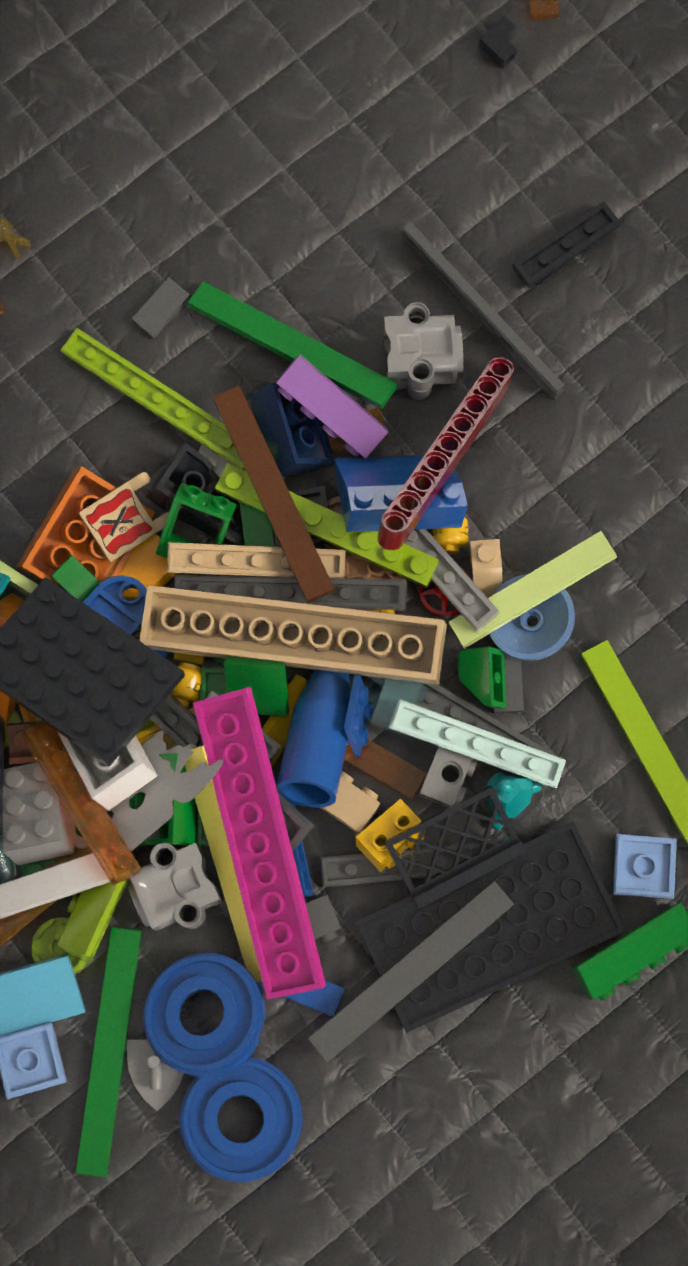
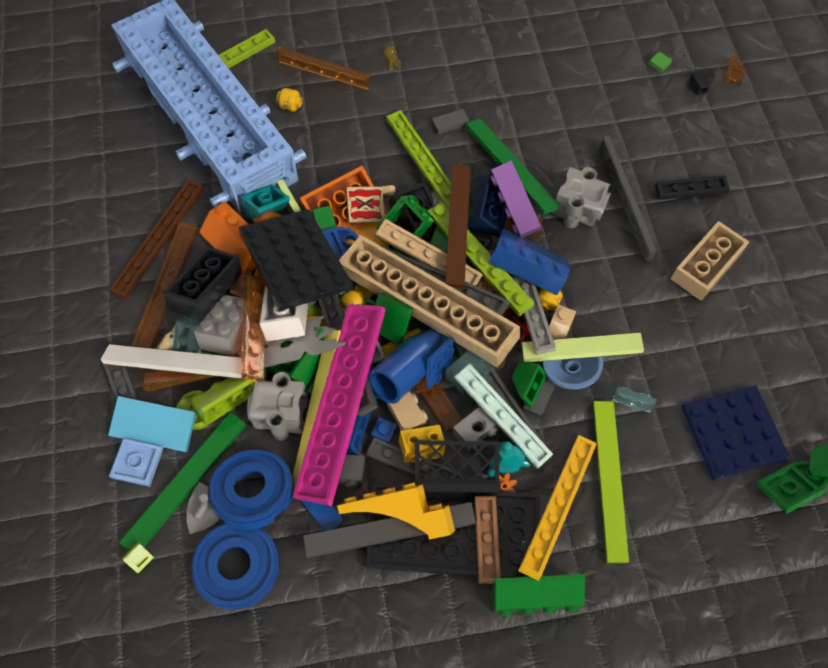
camera: 25 degrees right, 15 degrees down
(112, 1178) = (137, 557): none -> tile
(328, 841) = (384, 430): none -> blue plate
(417, 933) = (407, 505): none -> yellow arch
(422, 36) = (660, 62): none -> bright green tile
(444, 454) = (566, 247): dark red beam -> none
(521, 826) = (505, 480): none -> orange plant
(538, 916) = (487, 539): none -> medium nougat tile
(606, 827) = (557, 508): none -> yellow tile
(643, 359) = (709, 260): none -> tan brick
(643, 621) = (633, 399): none -> clear light blue plate
(644, 866) = (574, 547): light blue plate -> none

